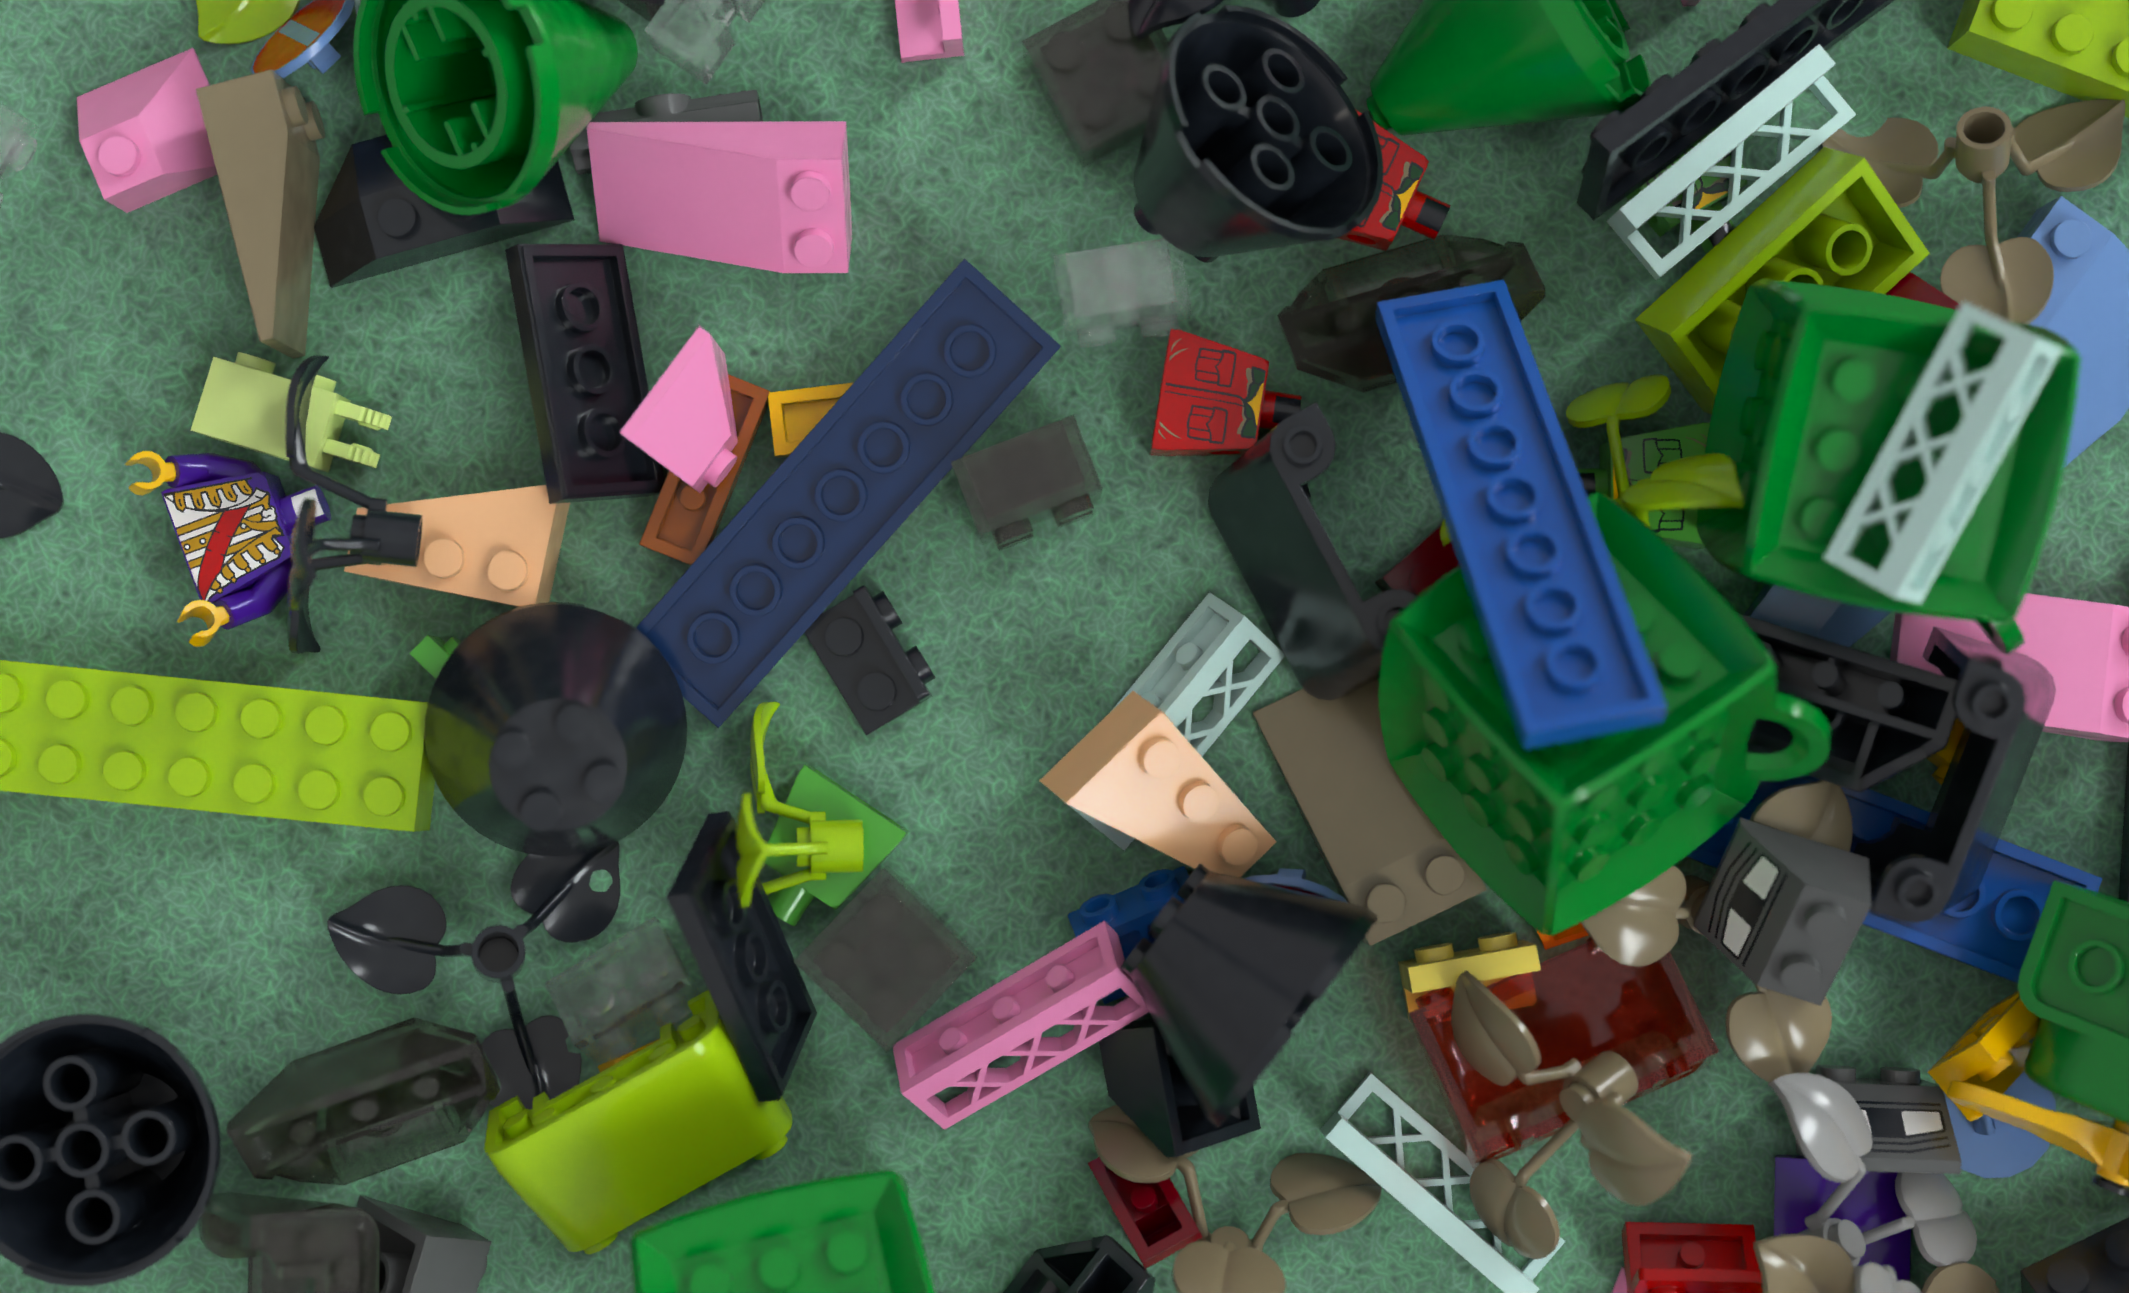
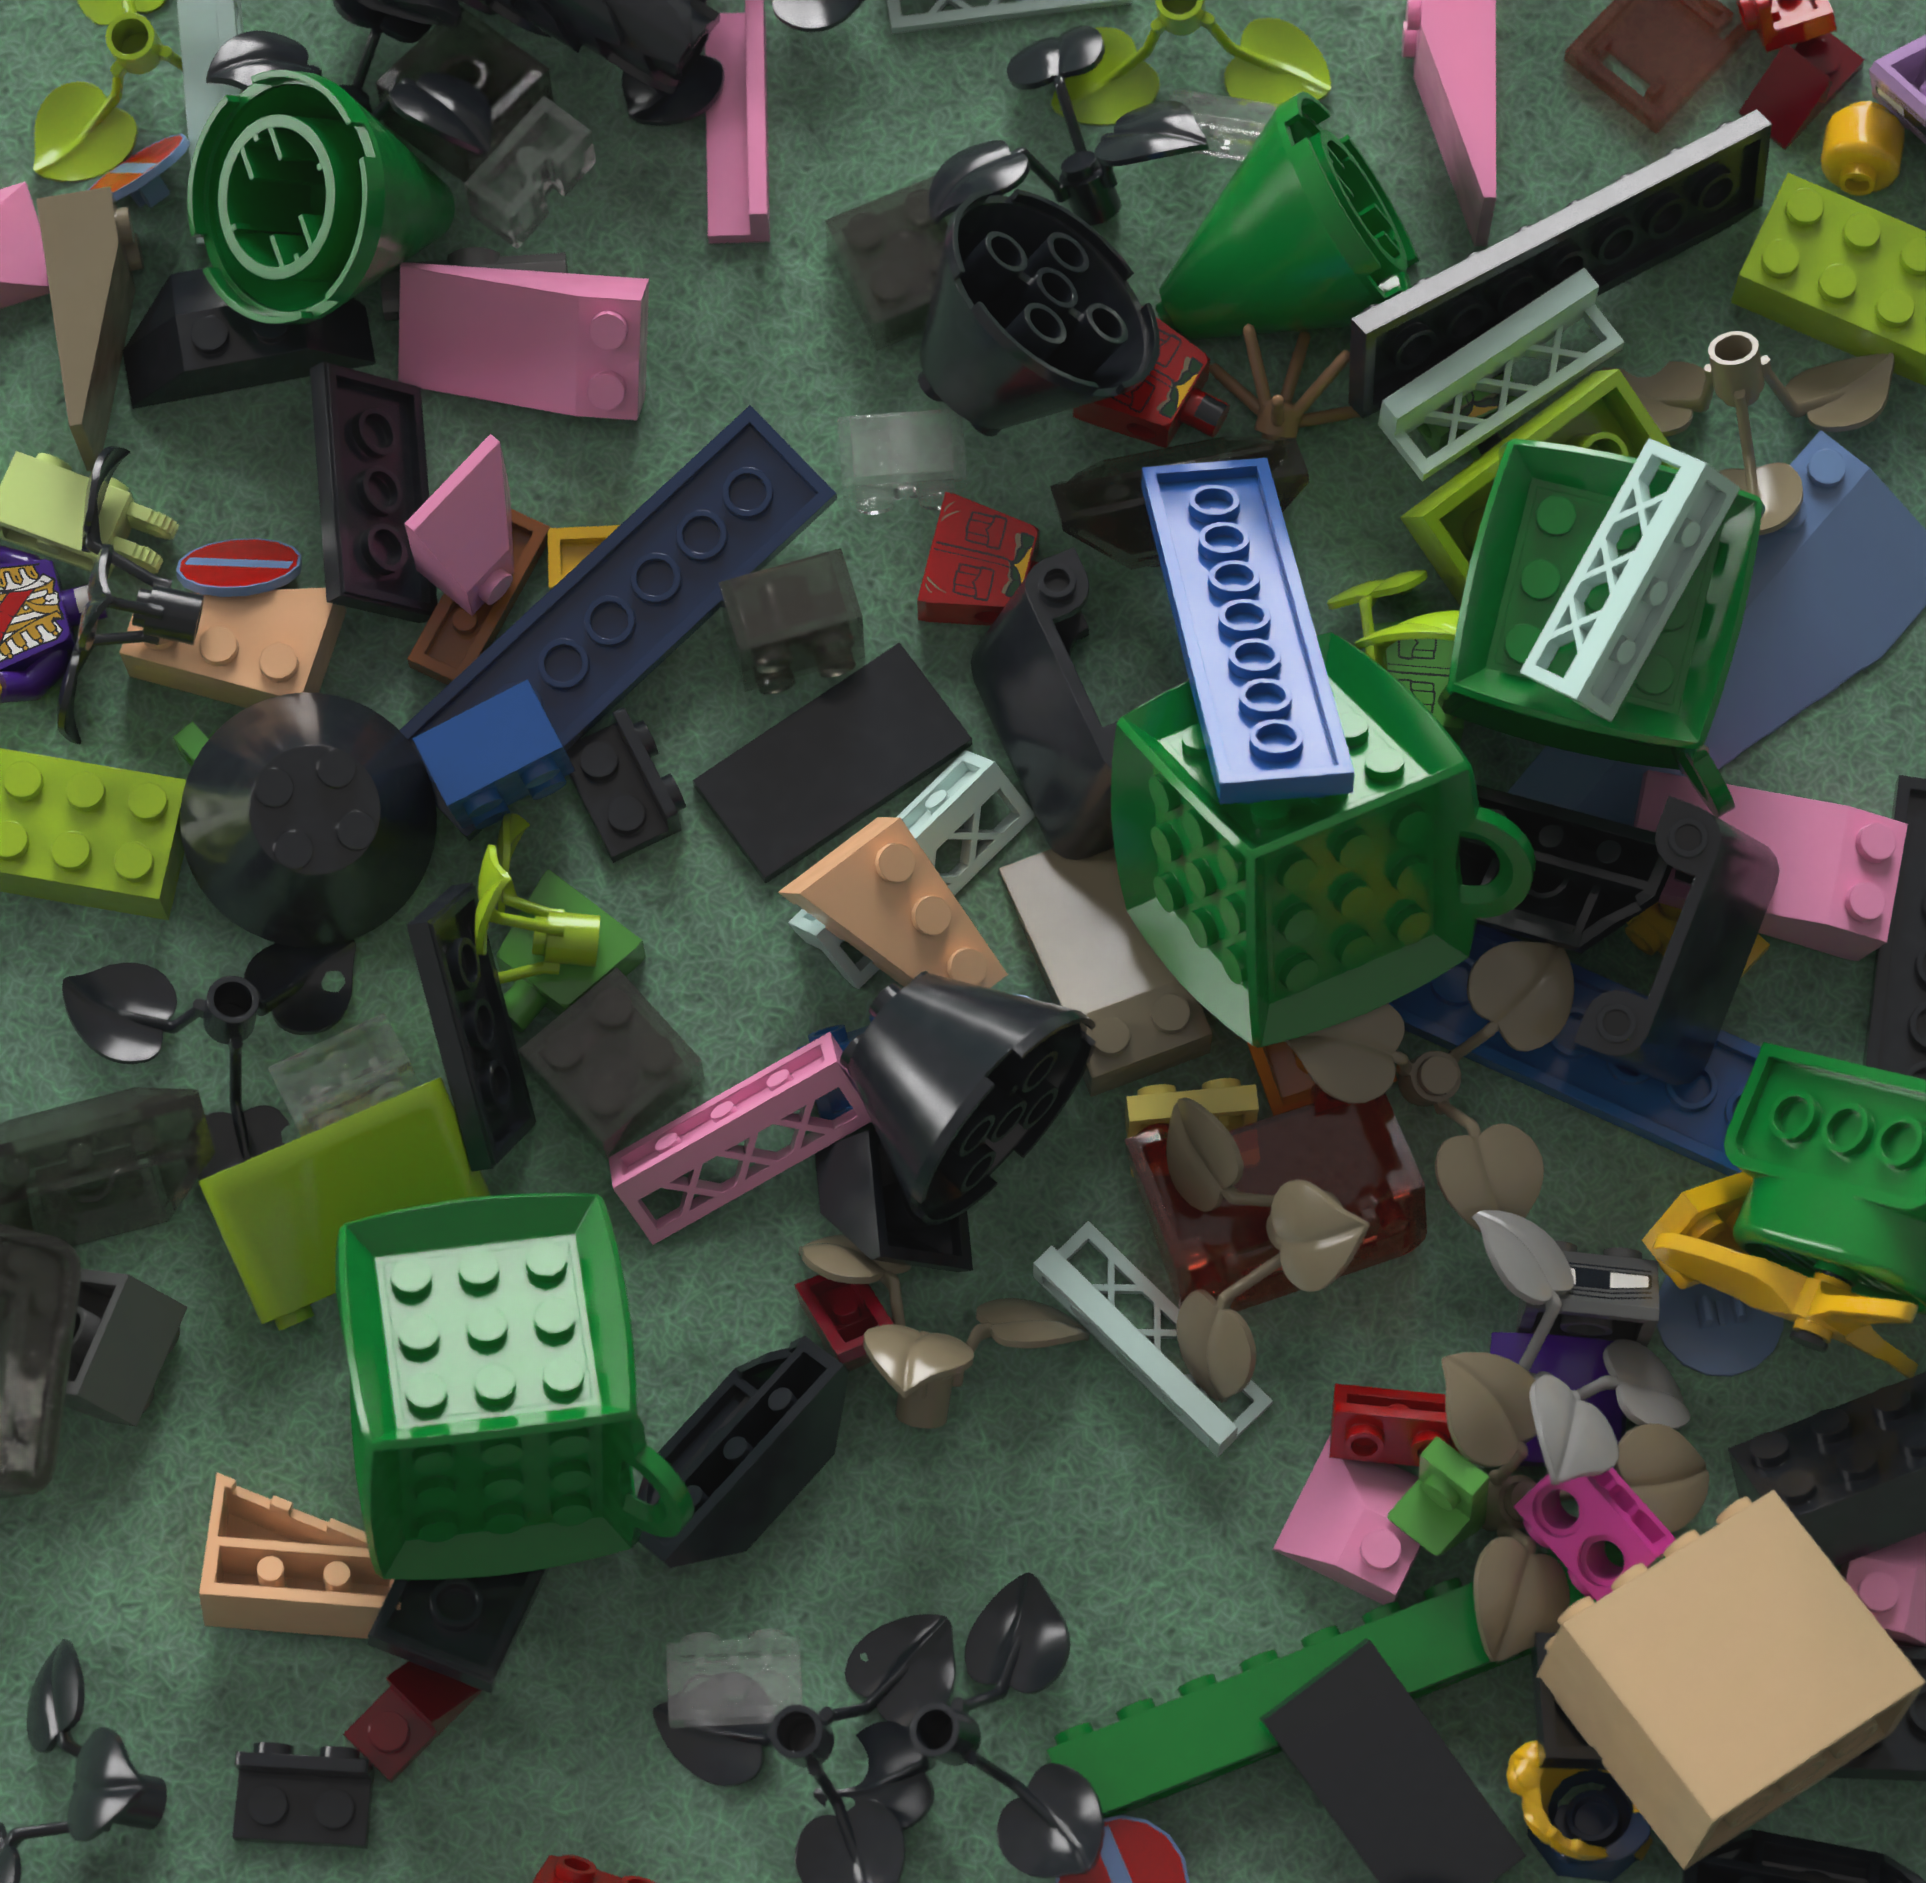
camera: 10 degrees right, 15 degrees down
(457, 462) = (239, 567): none -> red piece
(737, 663) = (495, 756): none -> blue brick
(1078, 615) = (832, 762): none -> black tile
(1499, 211) = (1278, 414): none -> medium nougat plant
(1785, 909) = (1496, 1051): dark grey slope -> none

